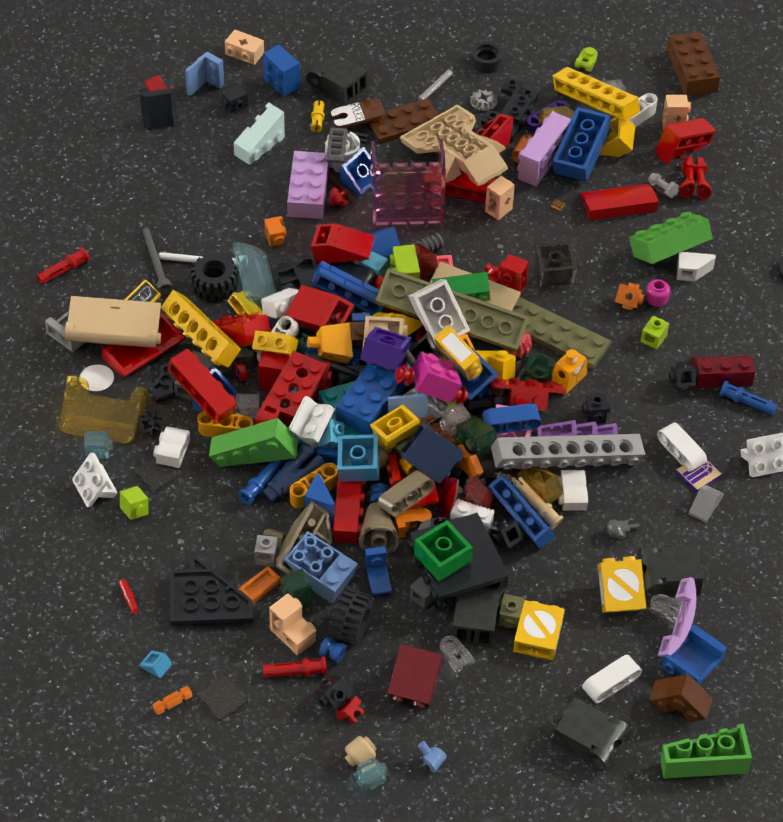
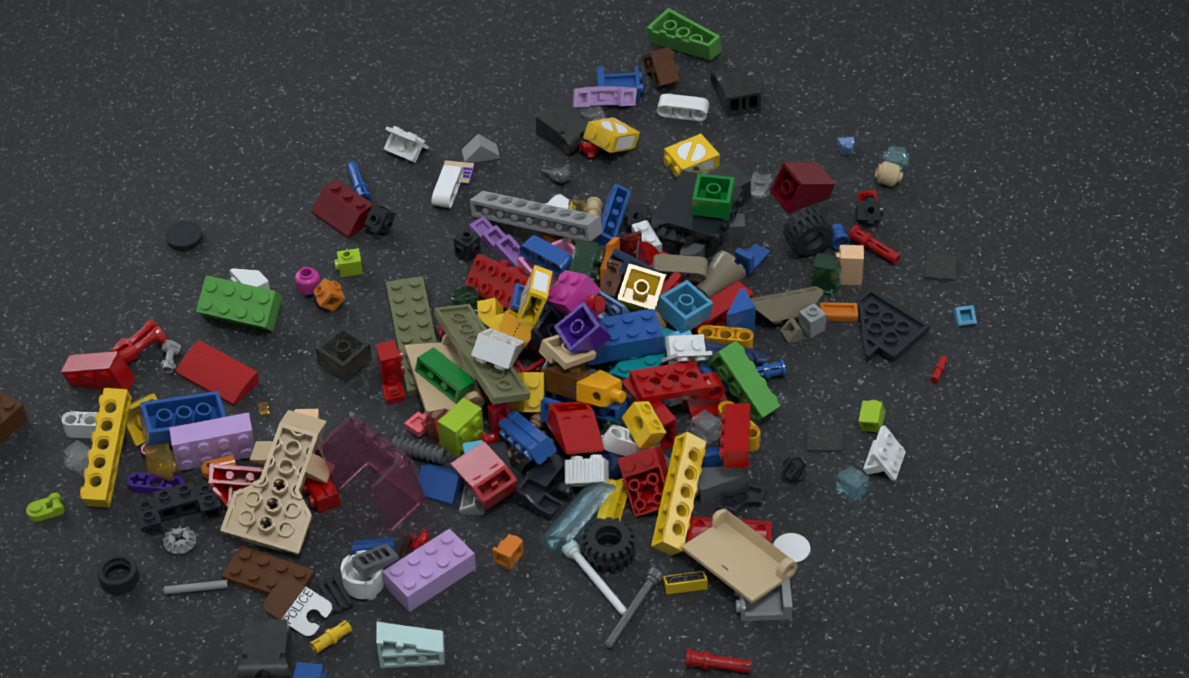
camera: 130 degrees left, 5 degrees down
(98, 413) = (816, 505): clear yellow windscreen -> none
(172, 446) = (796, 438): white brick -> none
(172, 700) = (977, 285): orange axle -> none
(324, 566) = (787, 274): medium blue slope -> none
(572, 367) = (447, 275): light orange torso -> none
(675, 109) = (74, 390): light nougat brick -> none

